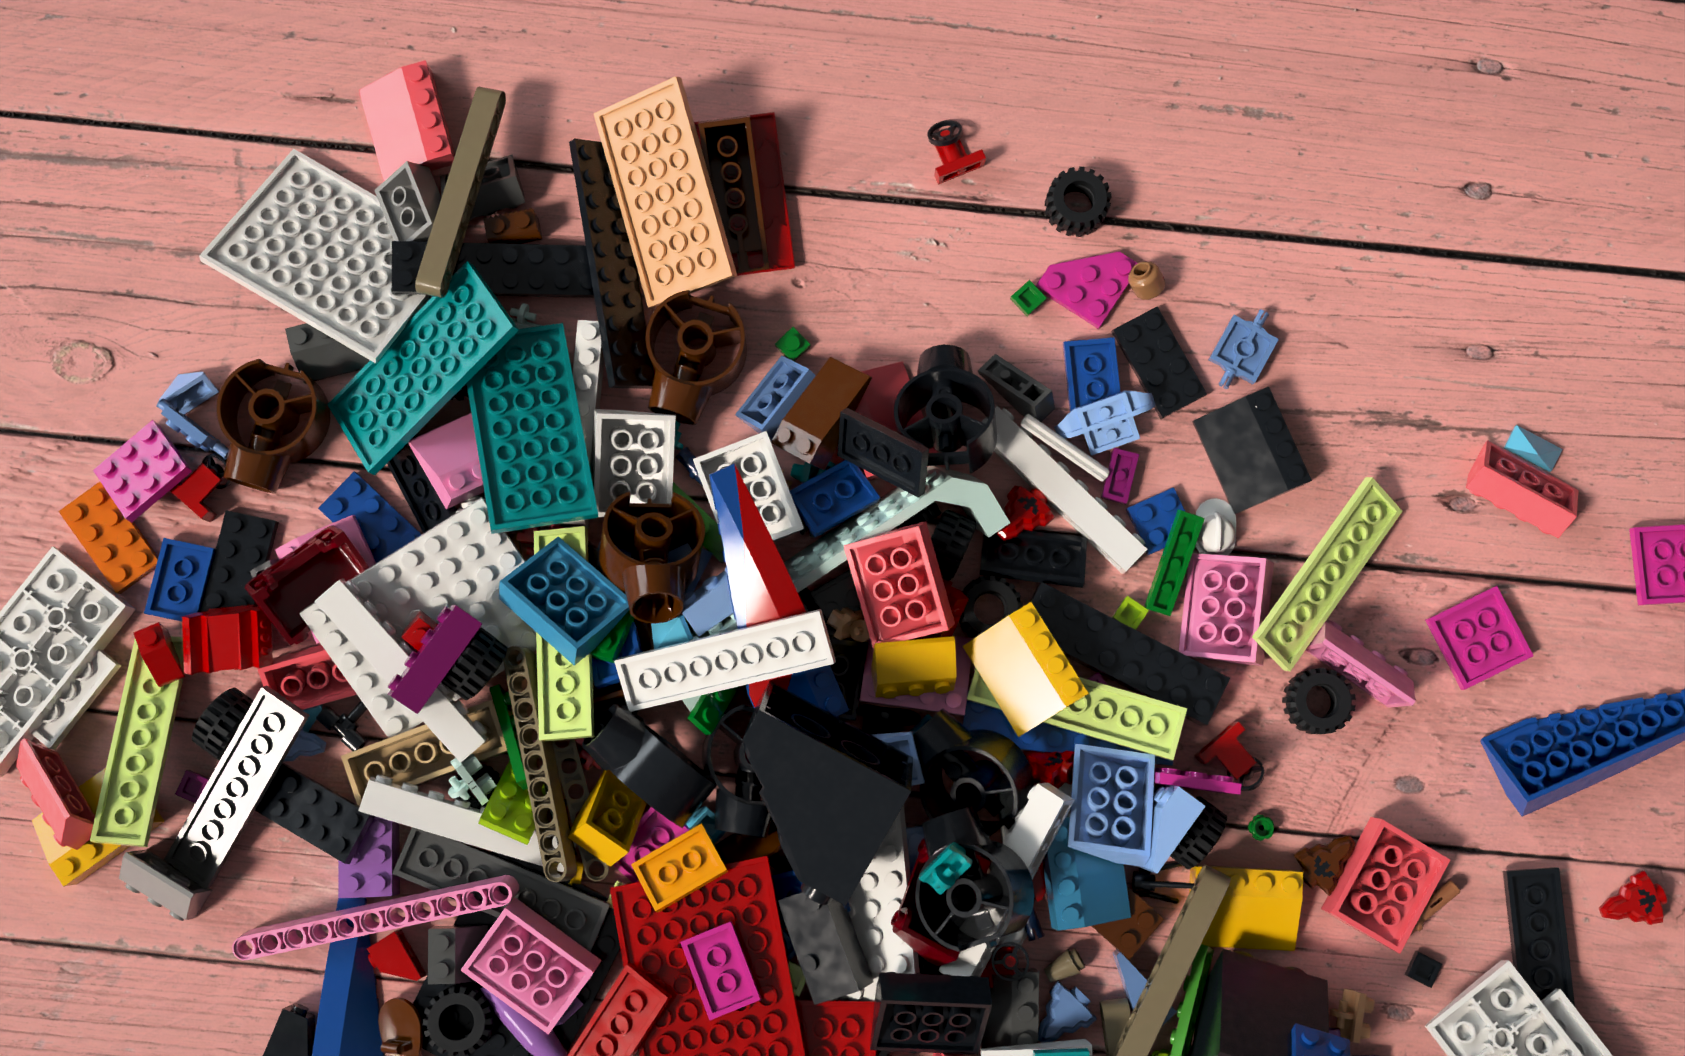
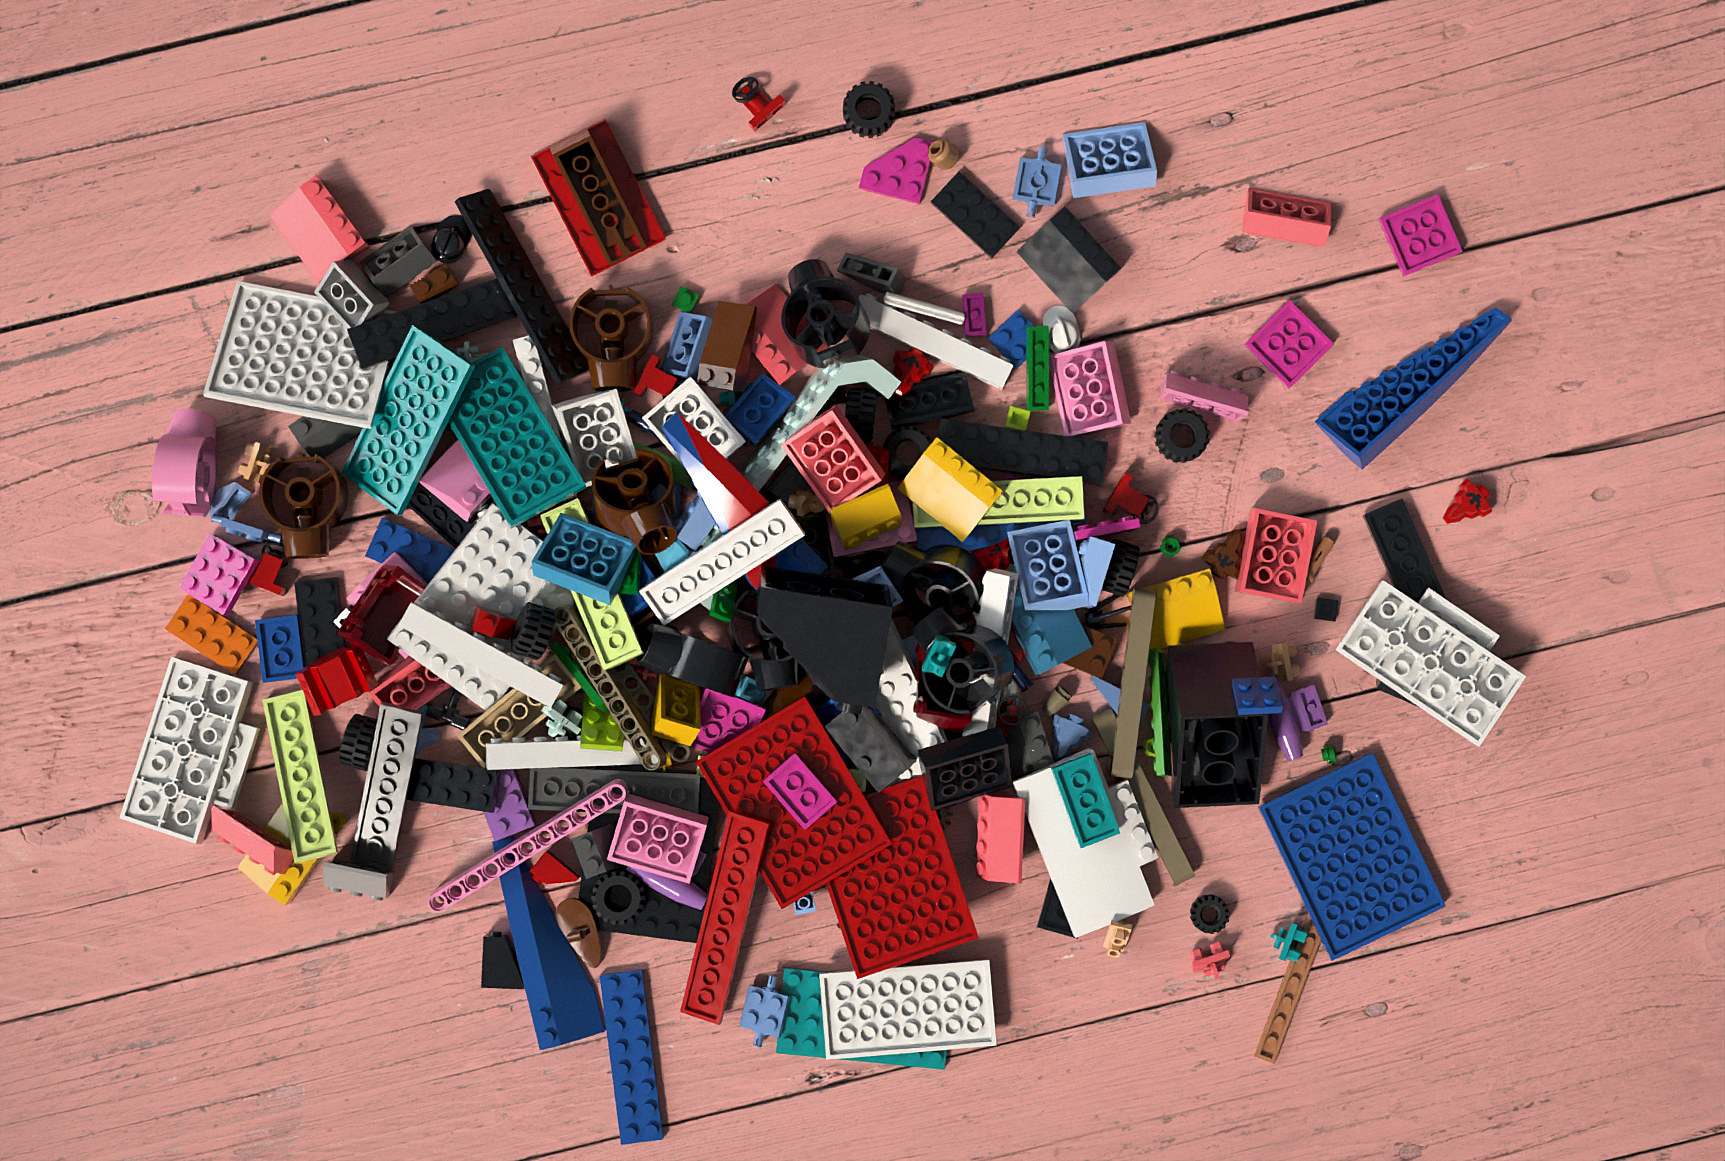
camera: 20 degrees left, 5 degrees up
(150, 331) = (186, 464): none -> bright pink animal
(159, 654) = (289, 708): red slope -> none
(172, 808) = (340, 820): none -> yellow plate
(191, 786) = (351, 799): magenta plate -> none
(241, 352) = (258, 461): none -> light nougat hips
(434, 659) = (504, 636): magenta brick -> none
(460, 192) = (386, 271): dark tan beam -> none
(550, 186) = (450, 239): none -> black piece
(665, 192) = (544, 216): light nougat plate -> none
(679, 868) = (742, 728): light orange plate -> none
(725, 422) = (656, 379): none -> red piece
(883, 452) = (785, 362): black plate -> none
(1028, 298) = (856, 199): green plate -> none
(1090, 370) = (927, 245): blue plate -> none
(1107, 421) = (950, 276): light blue plate -> none
(1327, 574) = (1156, 336): yellowish green plate -> none
(1336, 353) = (1109, 160): none -> light blue slope
(1533, 448) = (1286, 181): medium azure slope -> none

